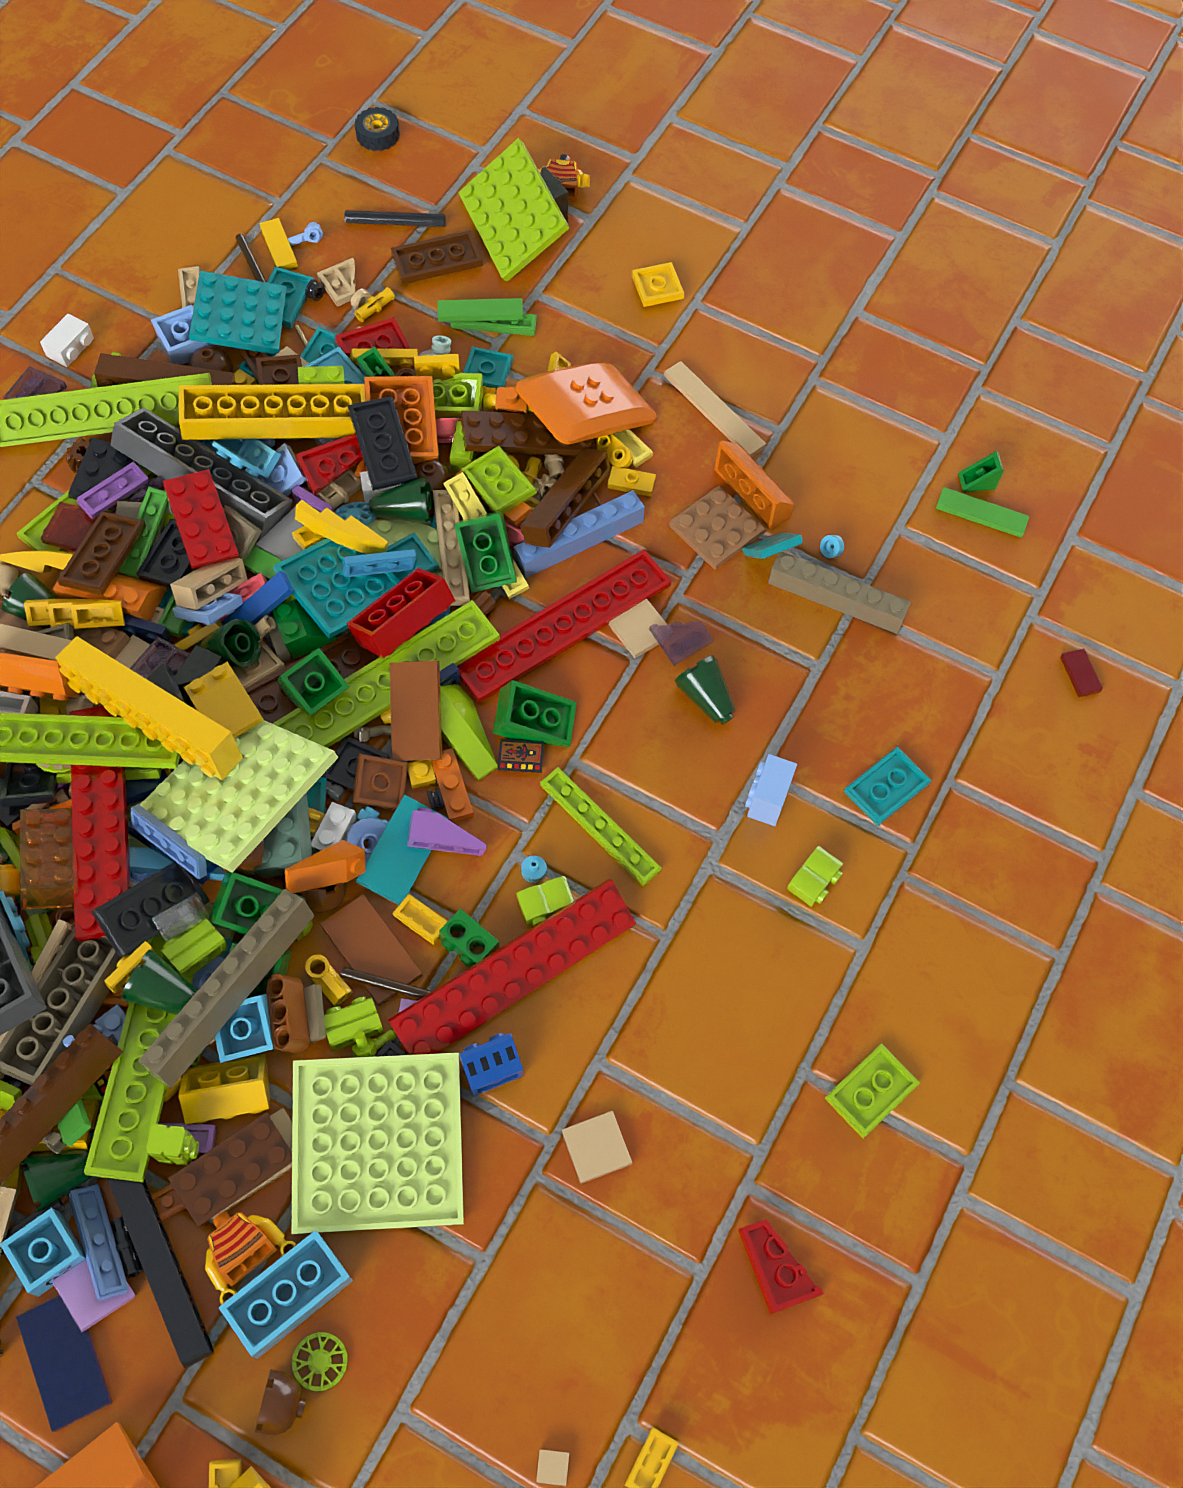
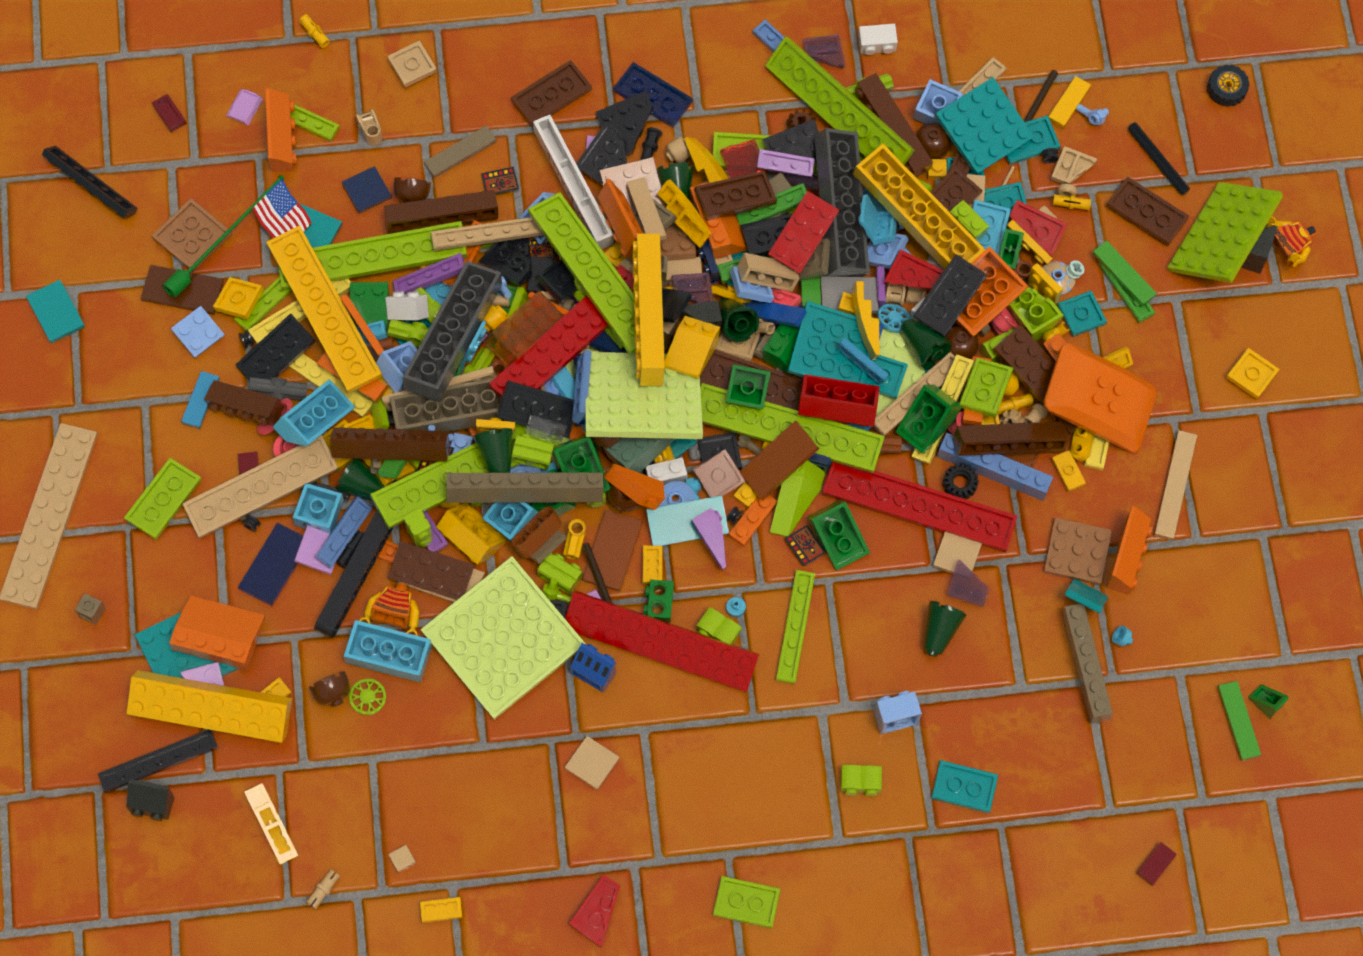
camera: 55 degrees right, 5 degrees up
(568, 562) = (960, 471): none -> black tyre

